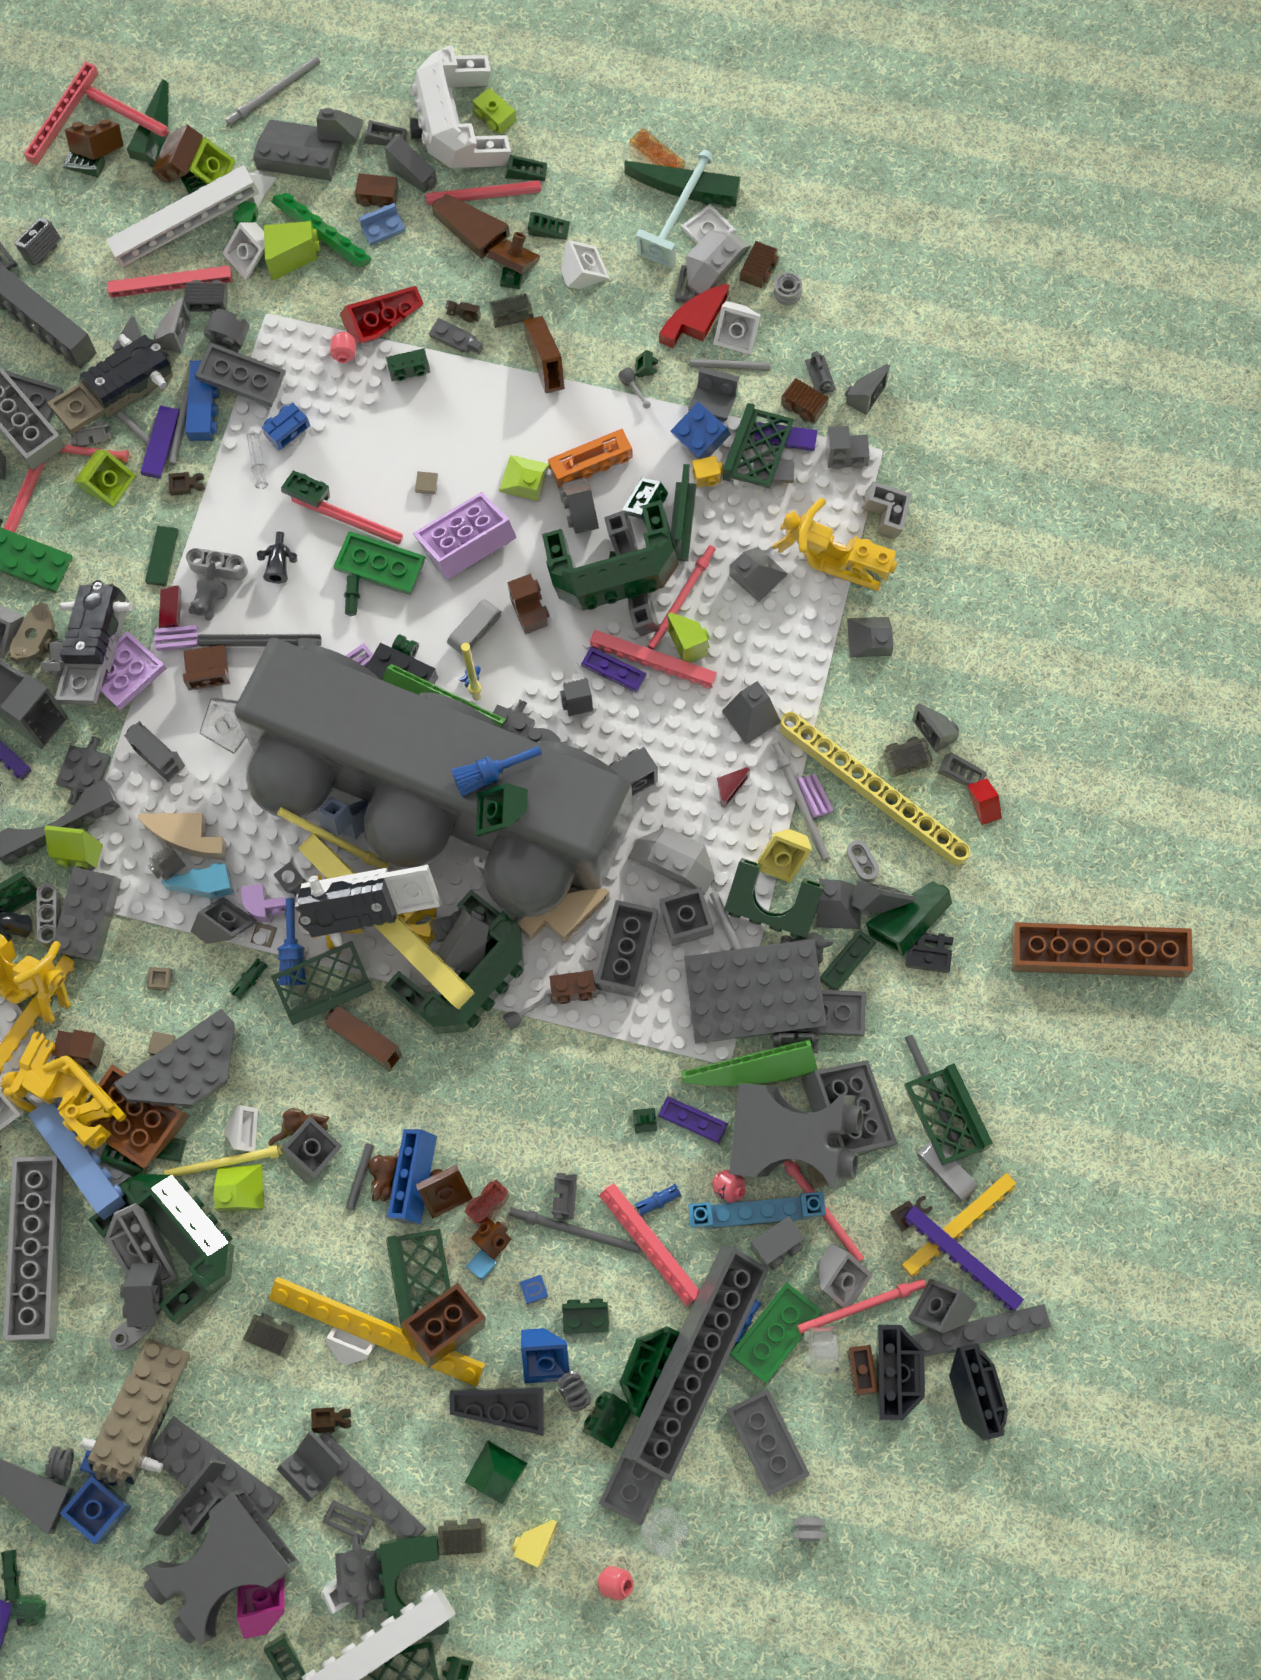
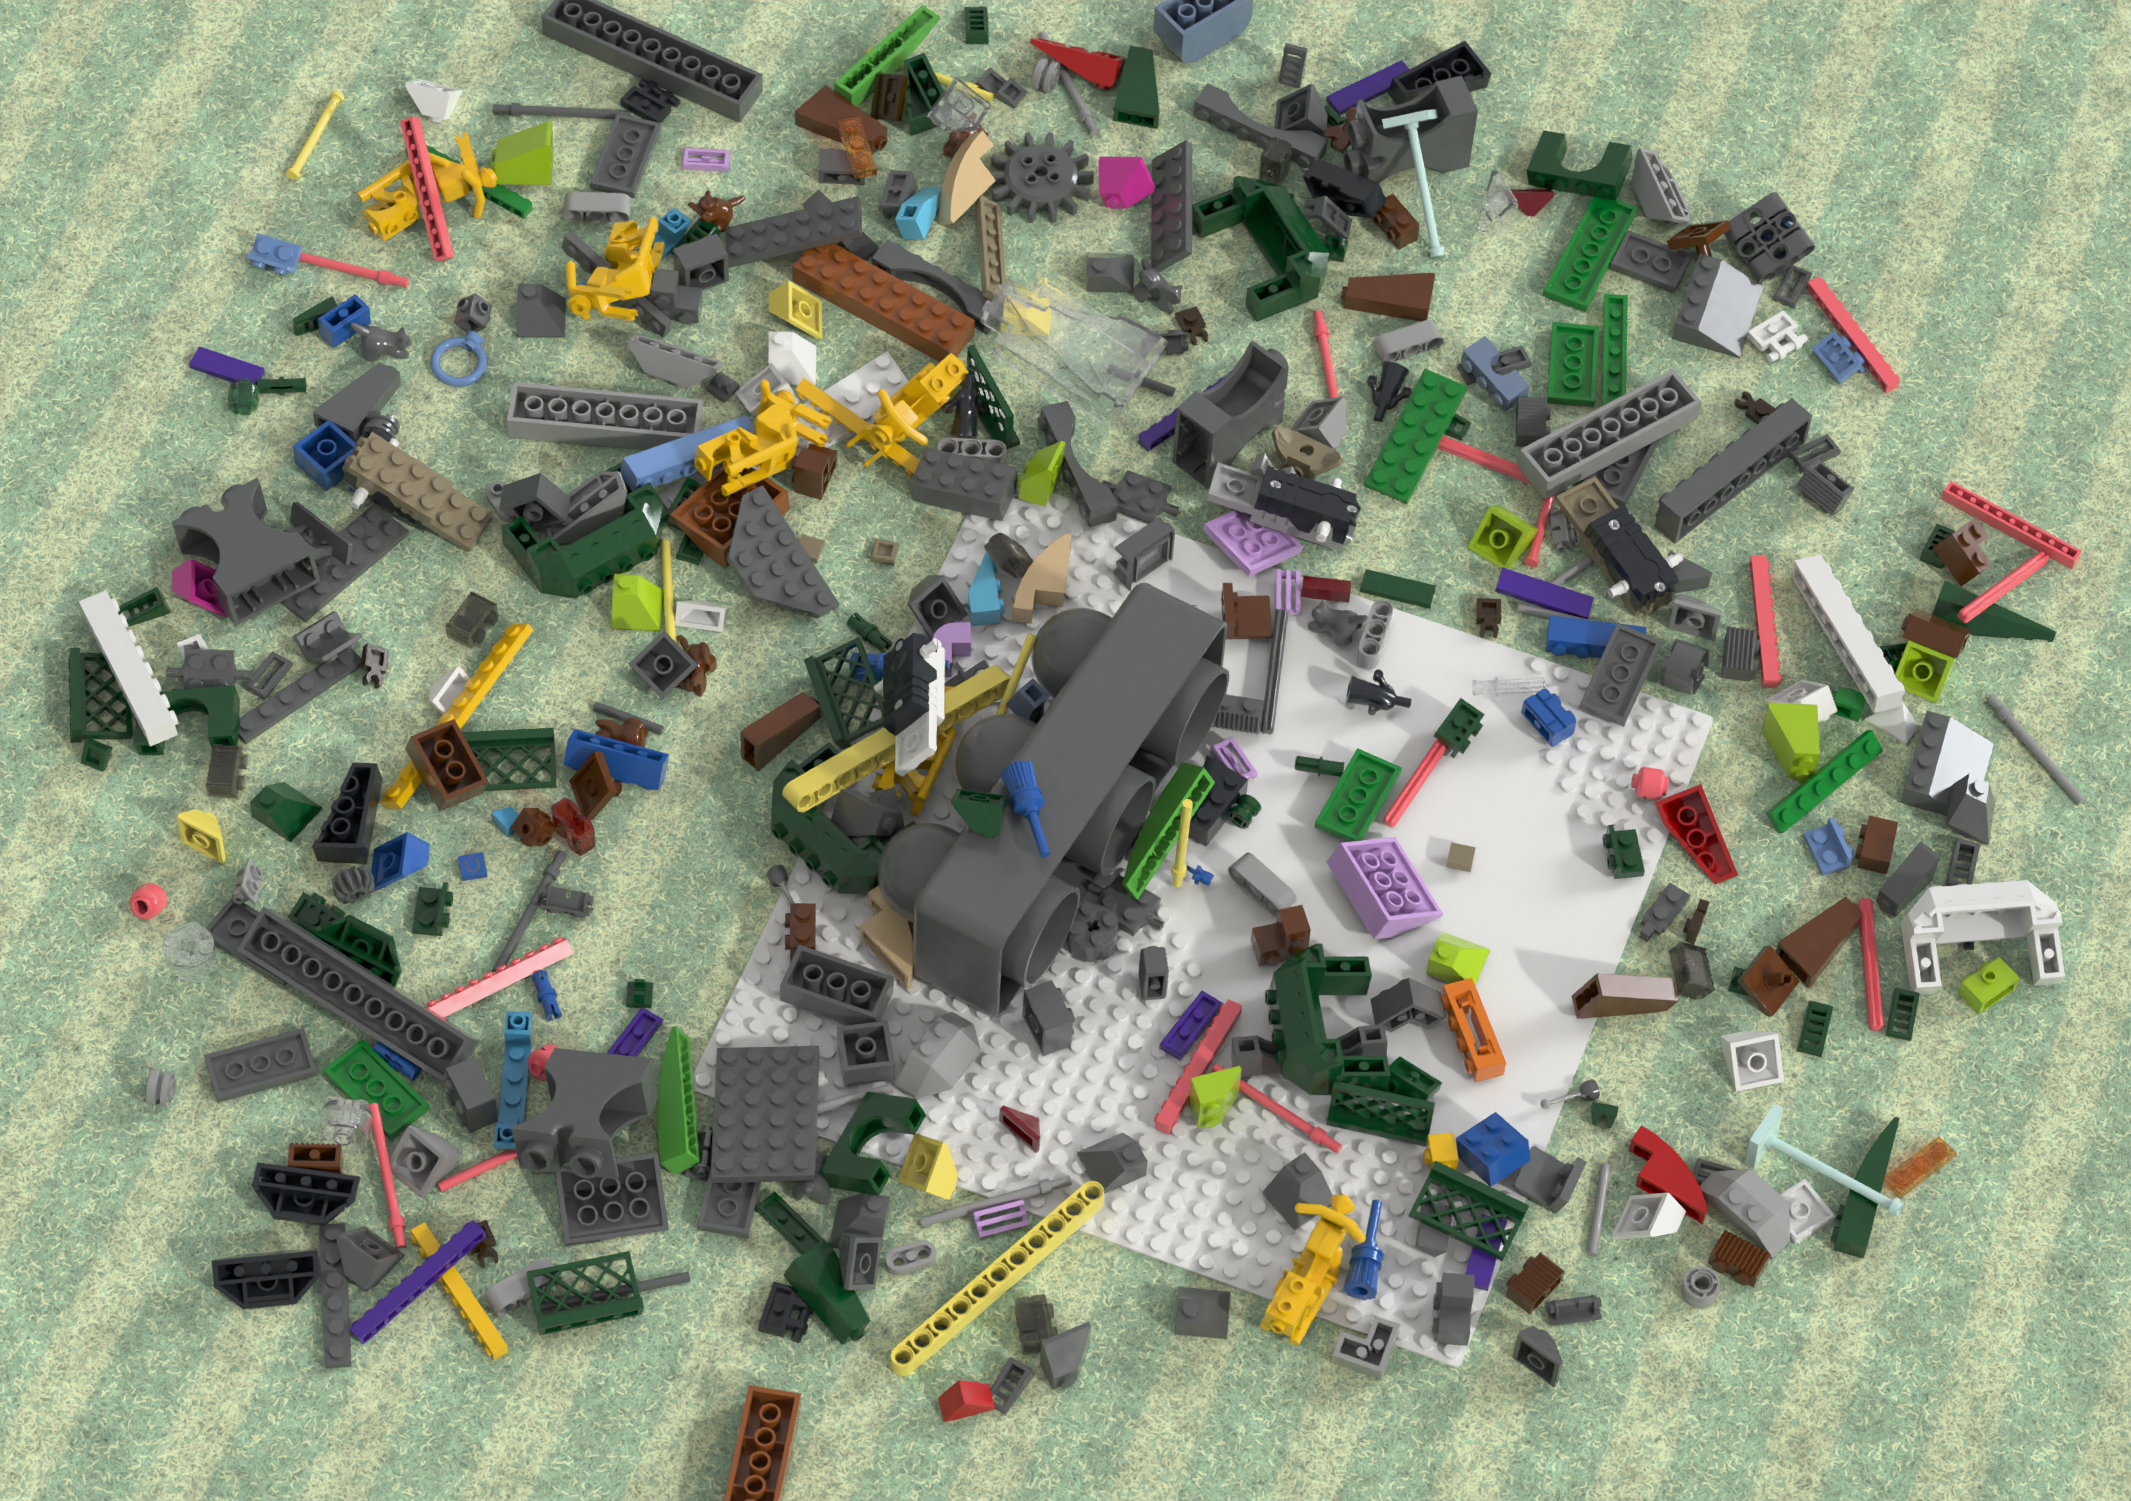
camera: 90 degrees right, 15 degrees down
(575, 1491) = (247, 883): none -> light grey hinge
(828, 515) = (1365, 1261): none -> blue piece

